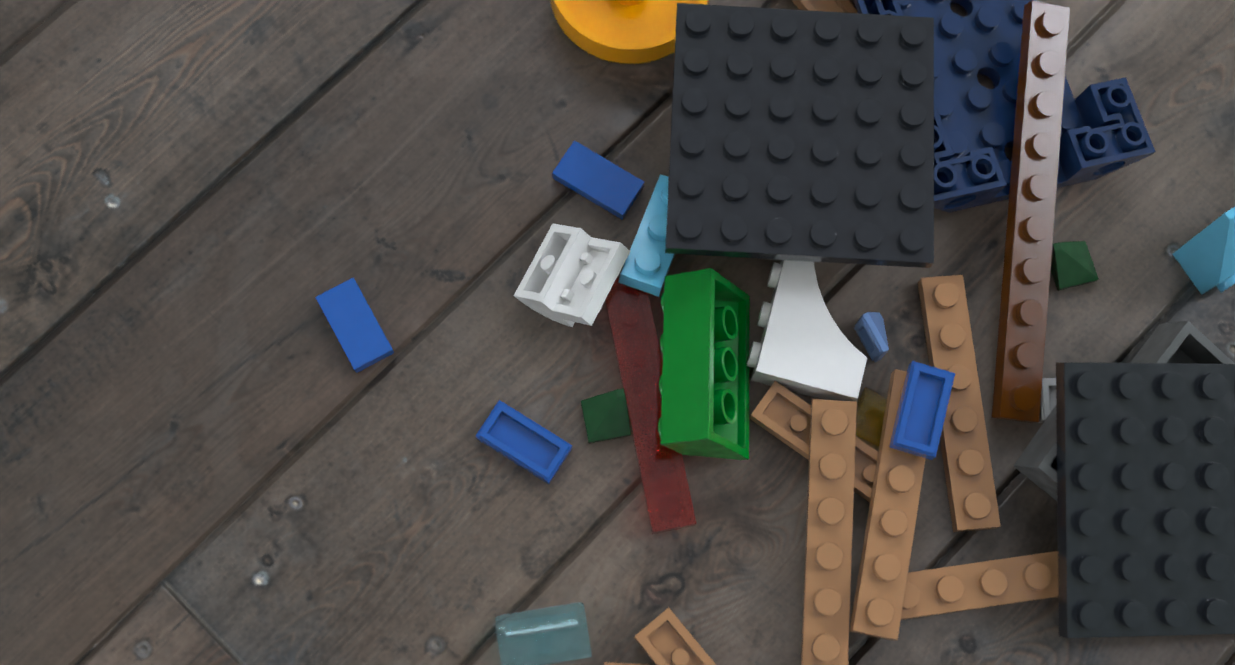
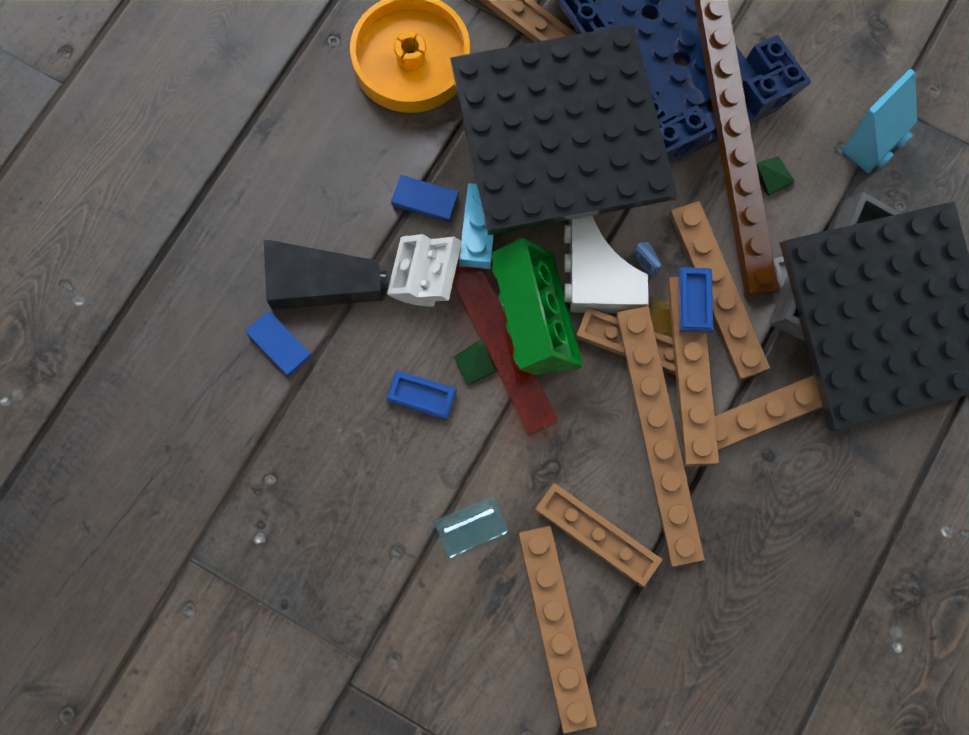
camera: 10 degrees left, 0 degrees up
(427, 250) = (318, 277): none -> black slope

